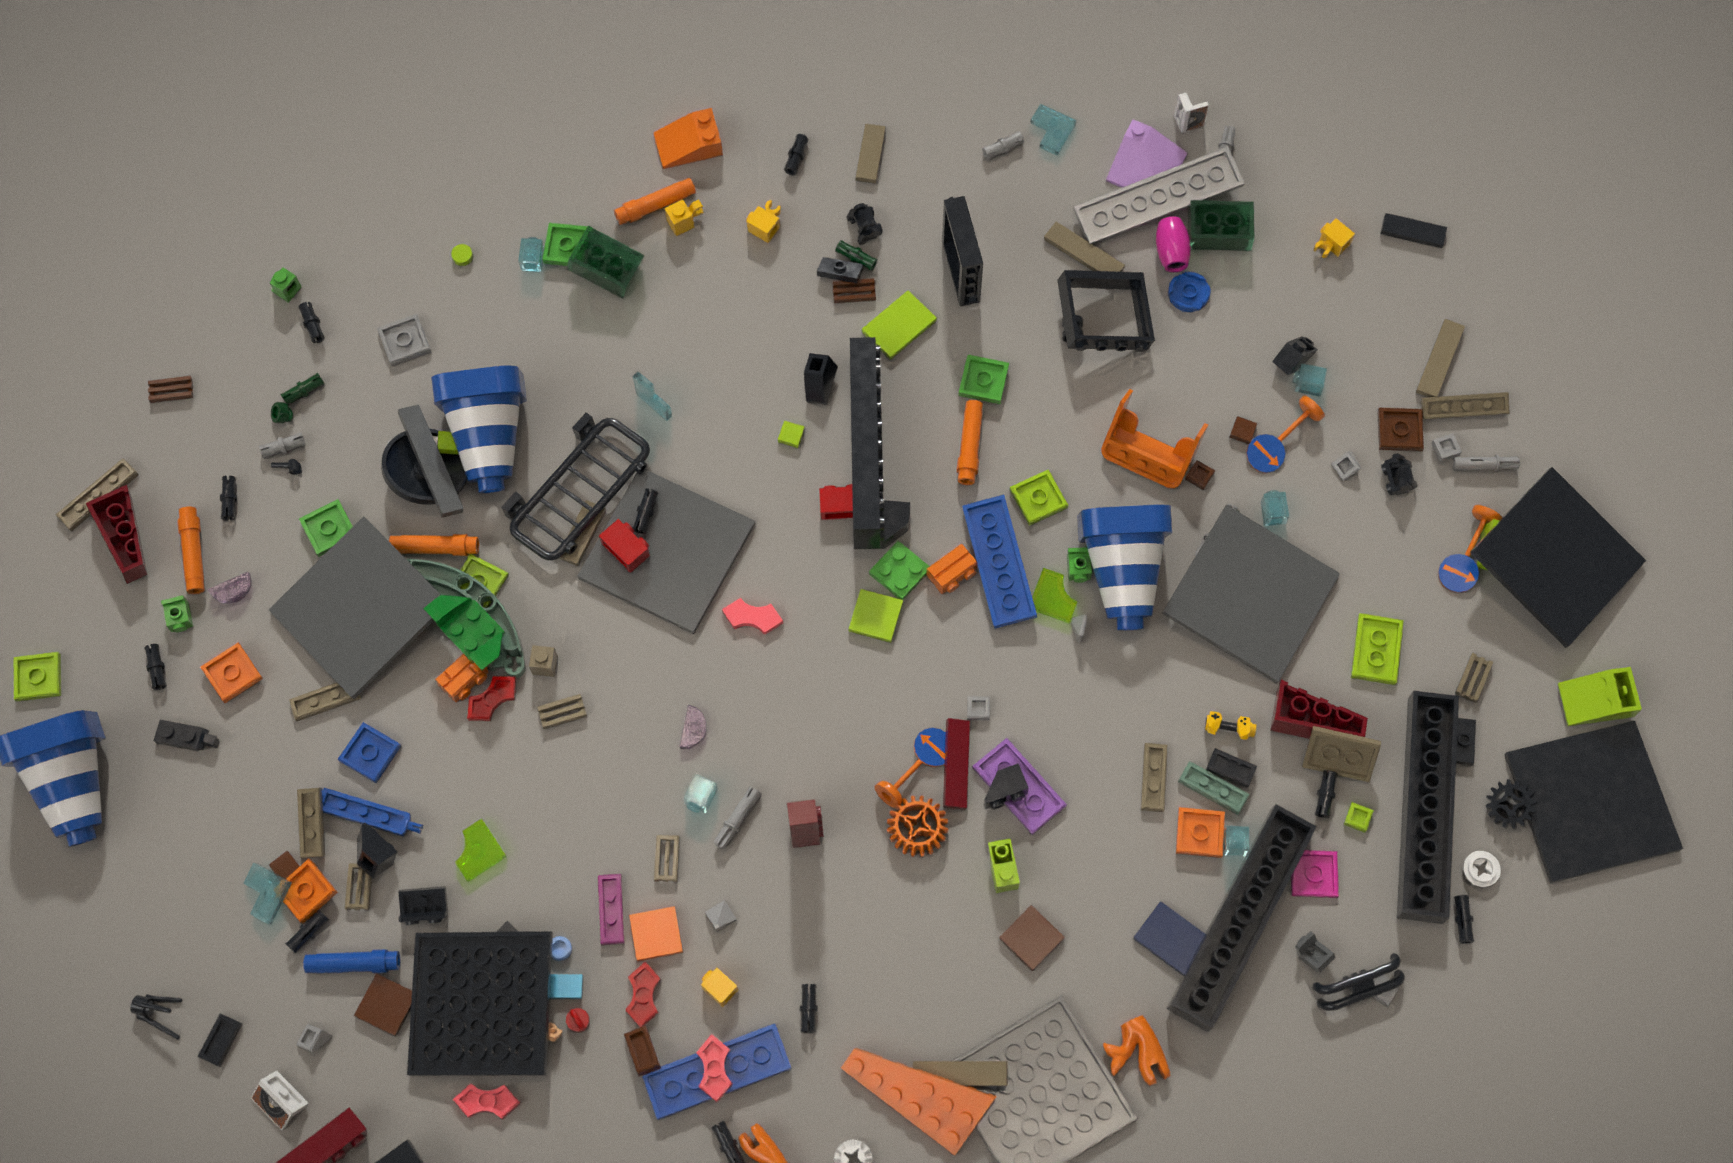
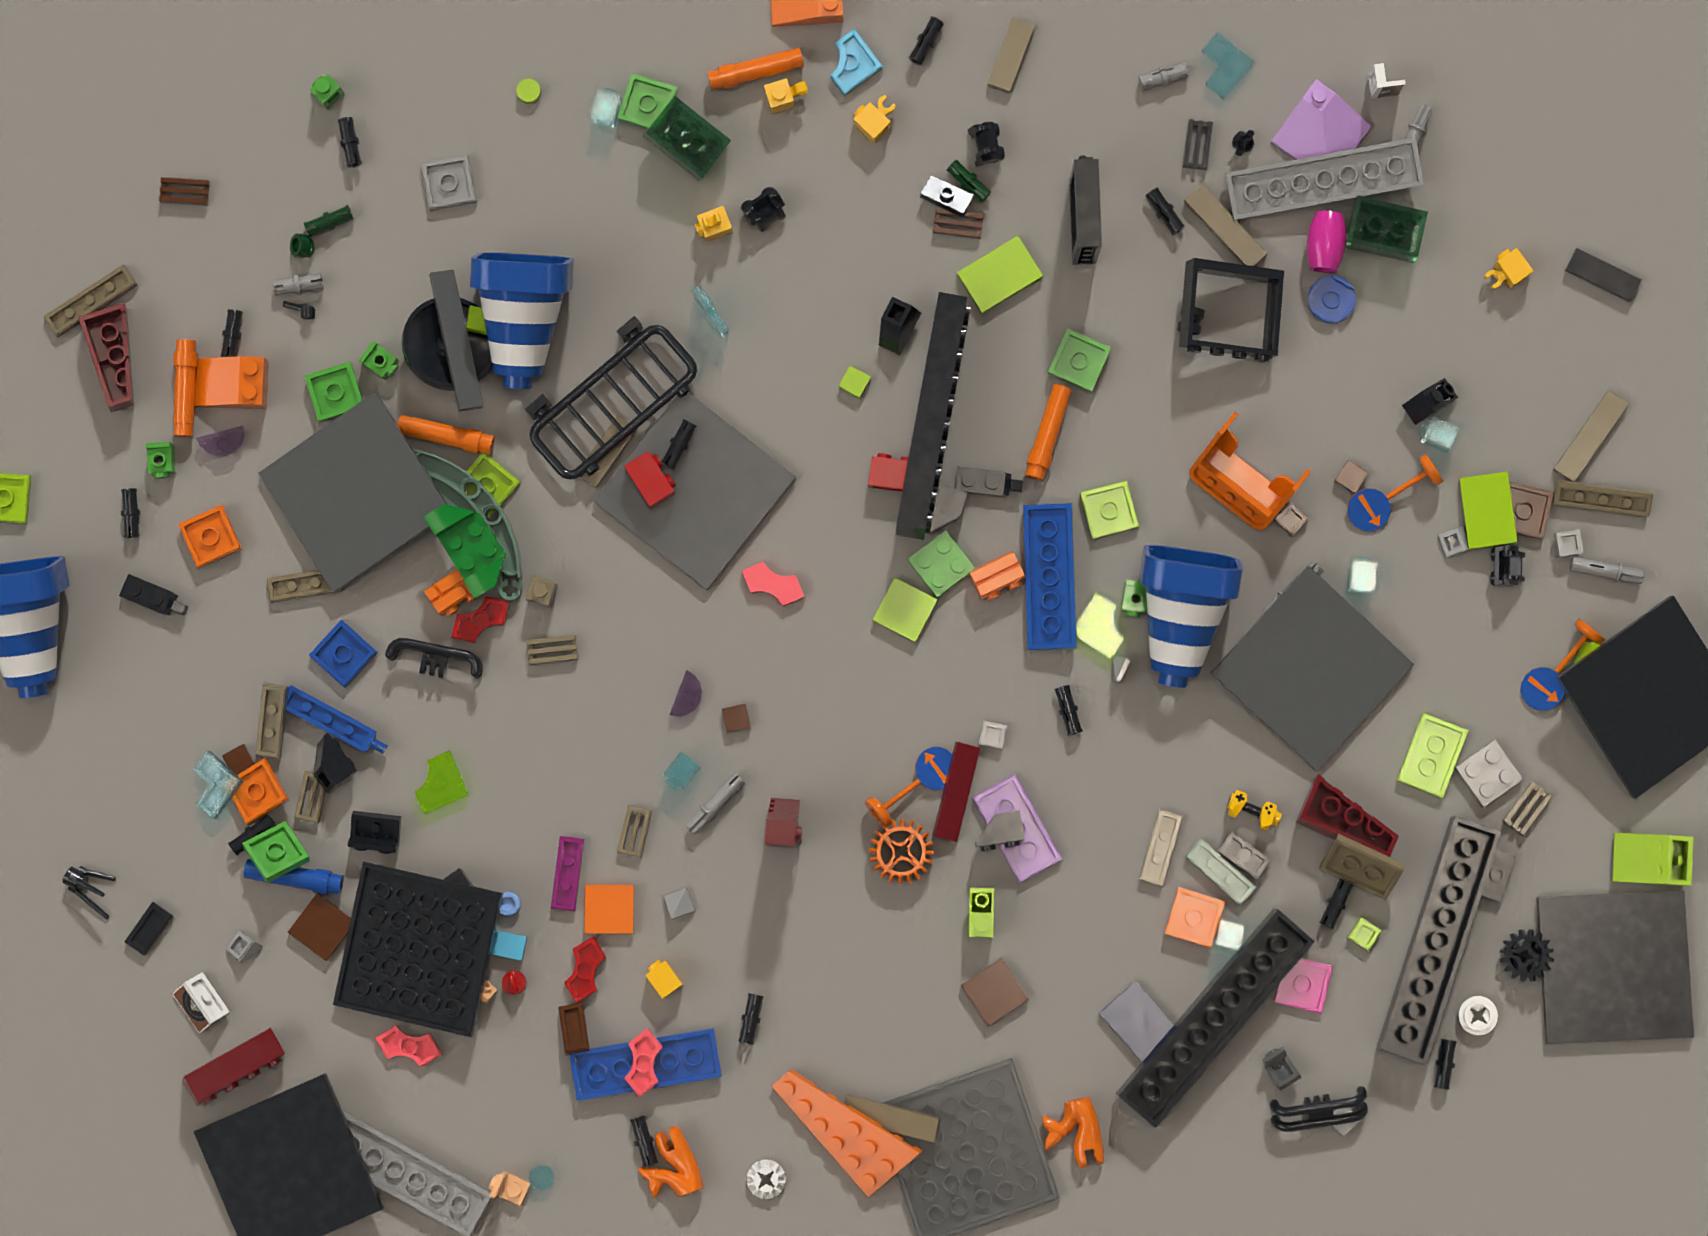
camera: 15 degrees right, 15 degrees up
(234, 537) = (232, 382): none -> orange slope
(331, 940) = (276, 852): none -> bright green plate
(368, 501) = (370, 356): none -> bright green brick
(453, 735) = (434, 656): none -> black piece
(642, 328) = (713, 224): none -> yellow brick
(683, 308) = (763, 208): none -> black piece
(739, 183) = (855, 64): none -> medium azure tile
(741, 738) = (736, 718): none -> reddish brown tile
(926, 494) = (986, 482): none -> hinge
(1029, 248) = (1165, 211): none -> black pin
(1042, 672) = (1068, 710): none -> black pin
(1043, 178) = (1200, 124): none -> black tile
(1083, 182) = (1243, 142): none -> black plate
(1369, 433) = (1488, 510): none -> lime tile
(1431, 654) = (1488, 773): none -> light grey plate

